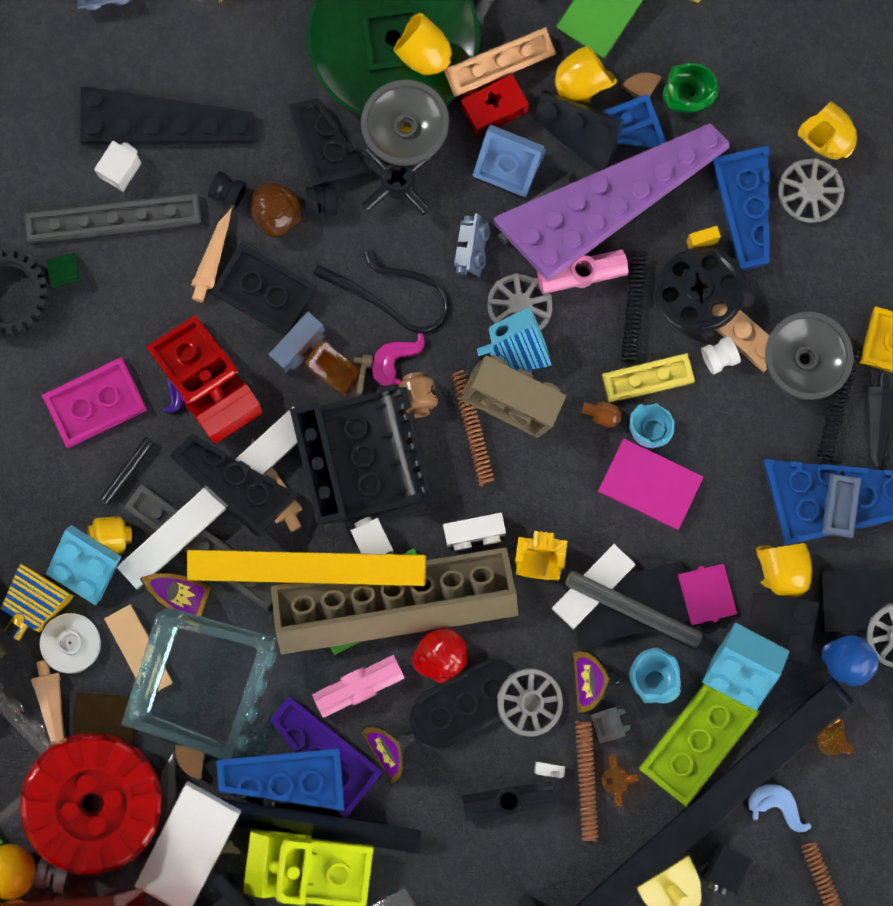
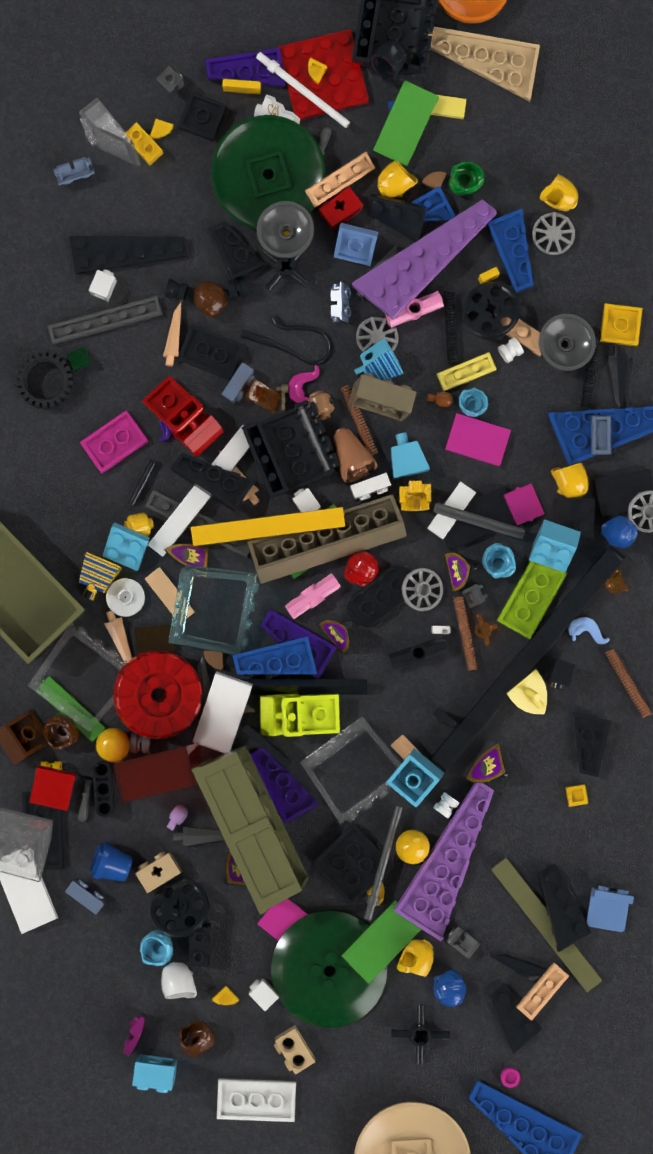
camera: 15 degrees left, 5 degrees up
(423, 46) = (290, 181): yellow piece -> none
(453, 480) = (352, 456): none -> nougat cone
(537, 495) = (407, 458): none -> medium azure torso

